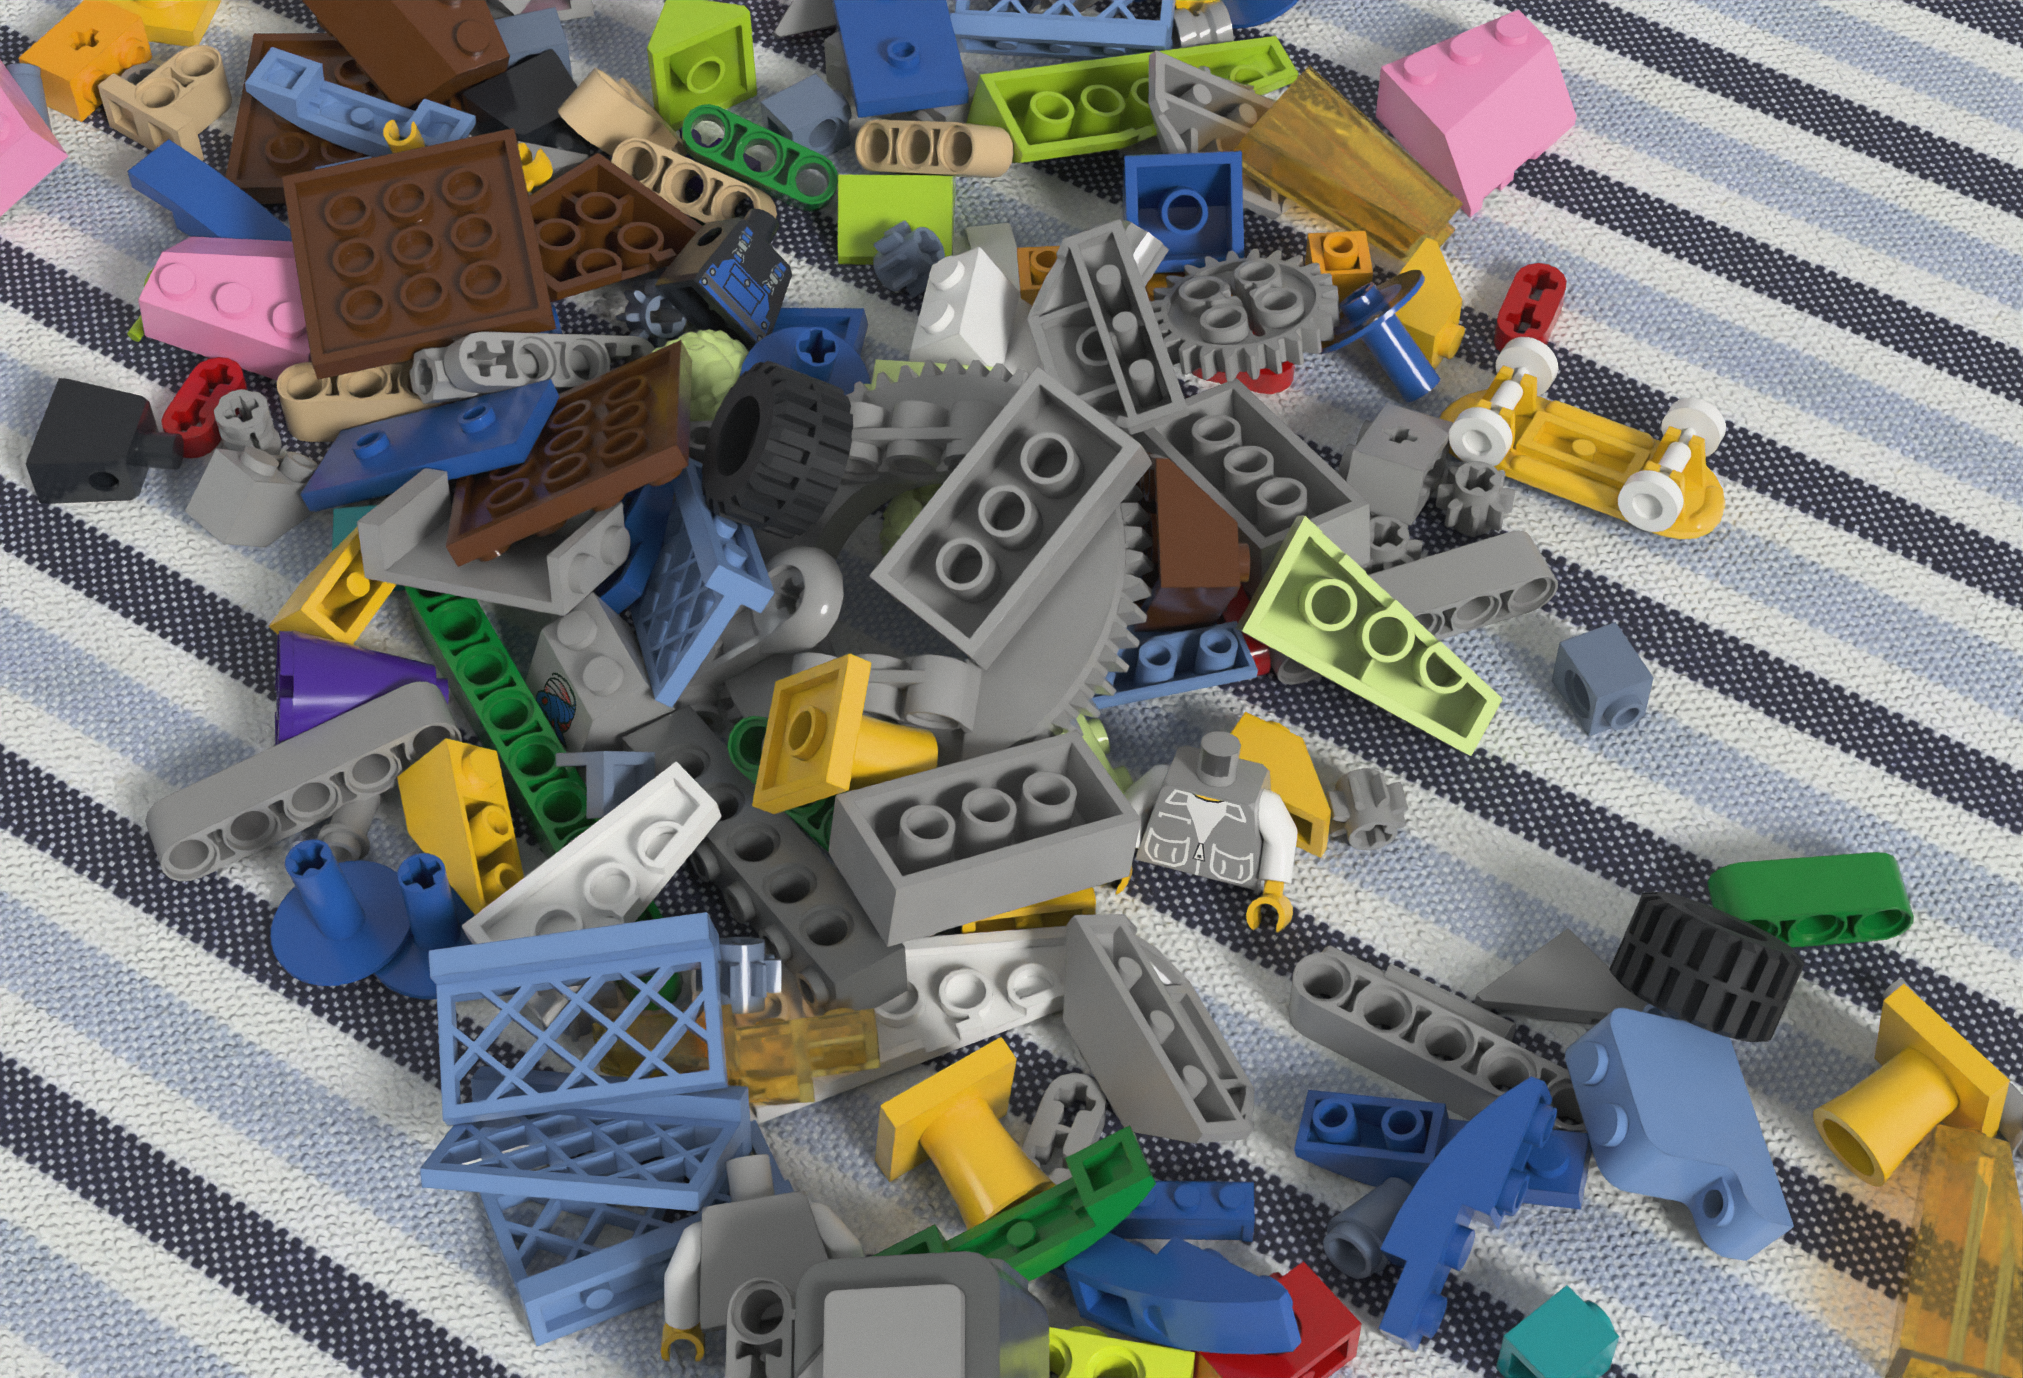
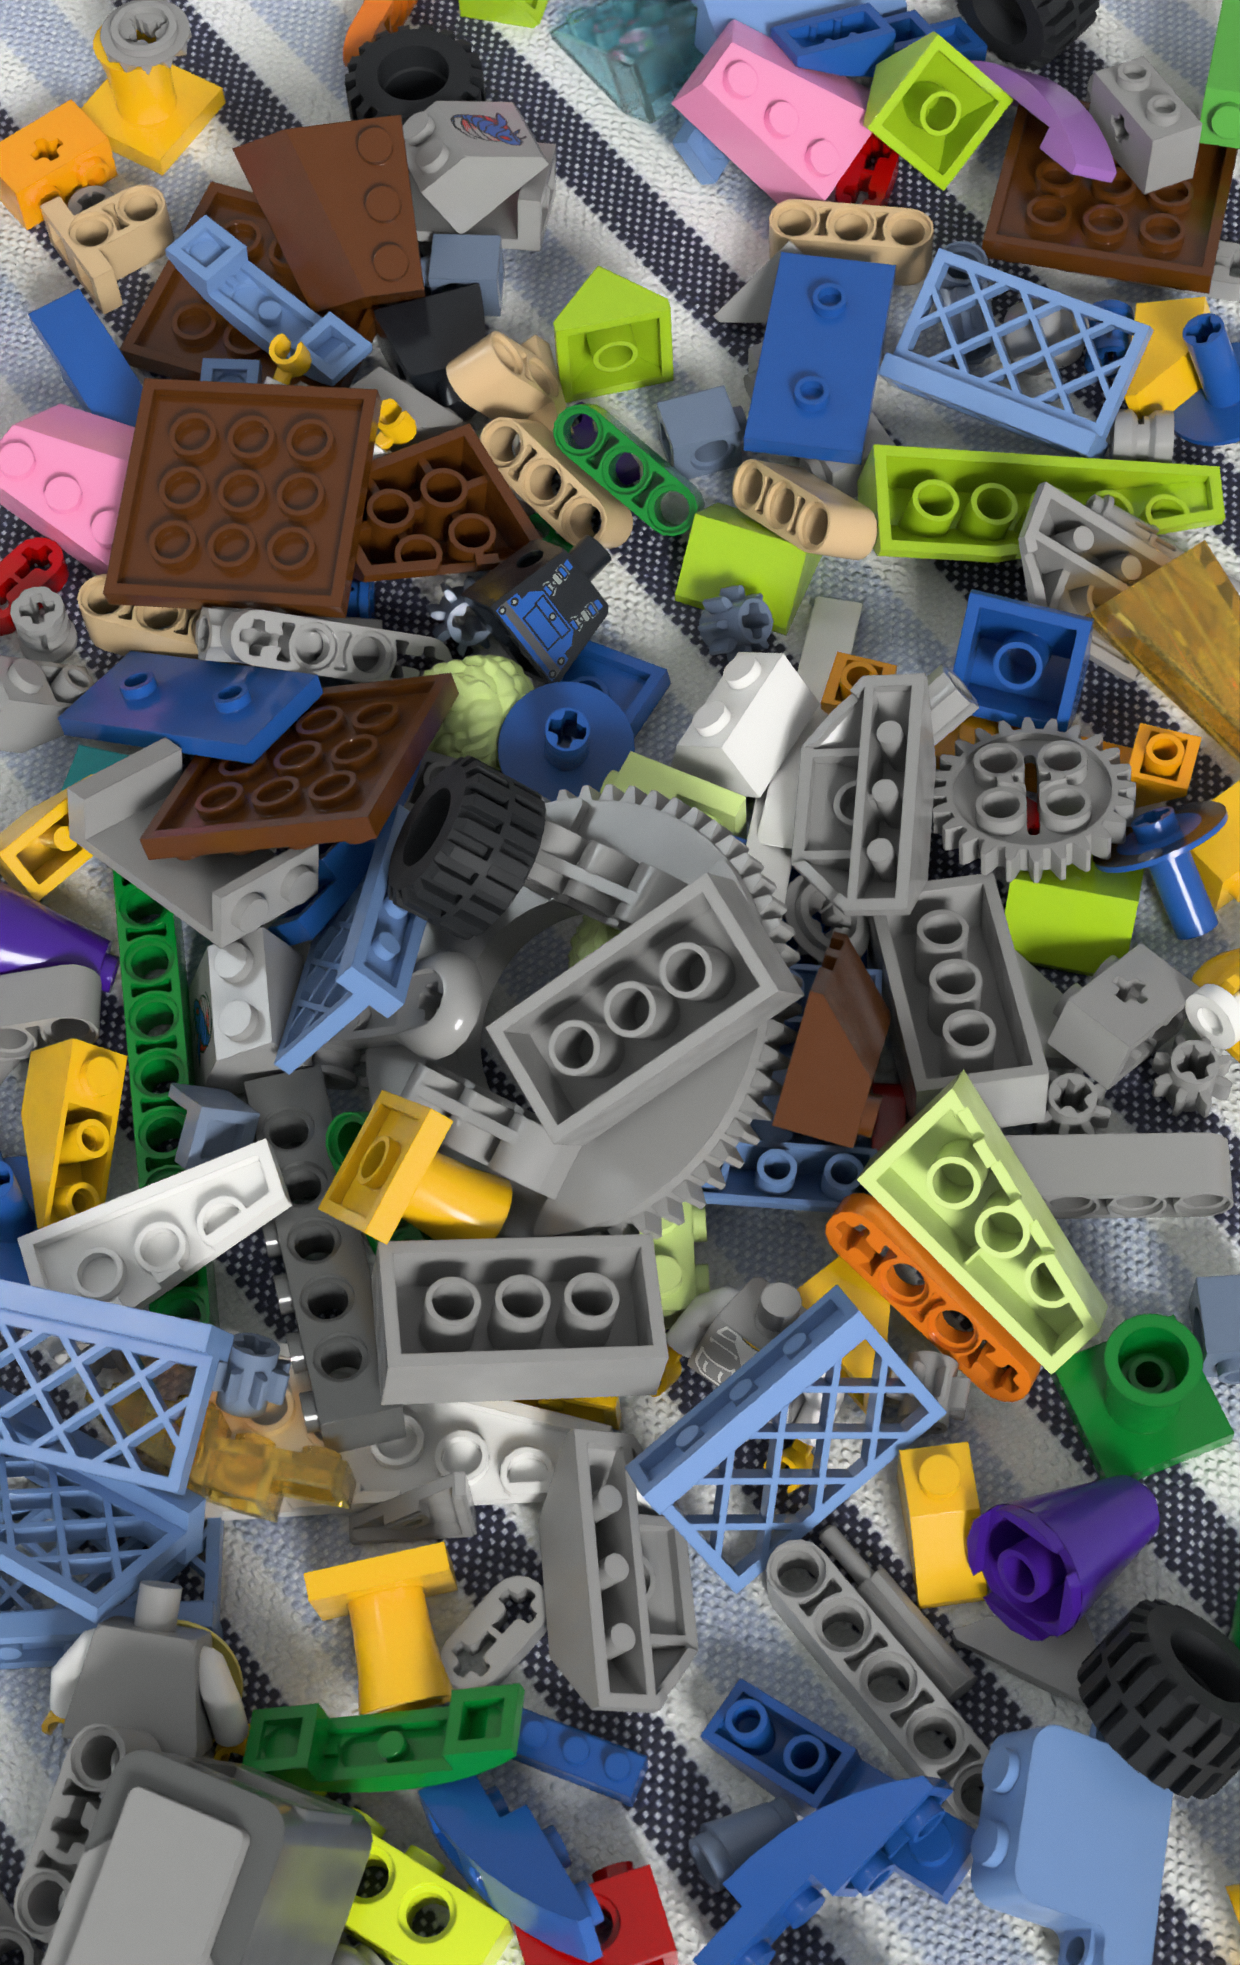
camera: 25 degrees right, 10 degrees up
(961, 1032) = (426, 1513): none -> light grey tile
(1236, 829) = (741, 1411): none -> medium blue fence
(1322, 398) = (1073, 920): none -> lime slope
(1347, 715) = (925, 1303): none -> orange beam
(1427, 908) = (938, 1512): none -> yellow slope
(1542, 894) = (1059, 1551): none -> dark purple cone
(1552, 757) = (1142, 1398): none -> green plant

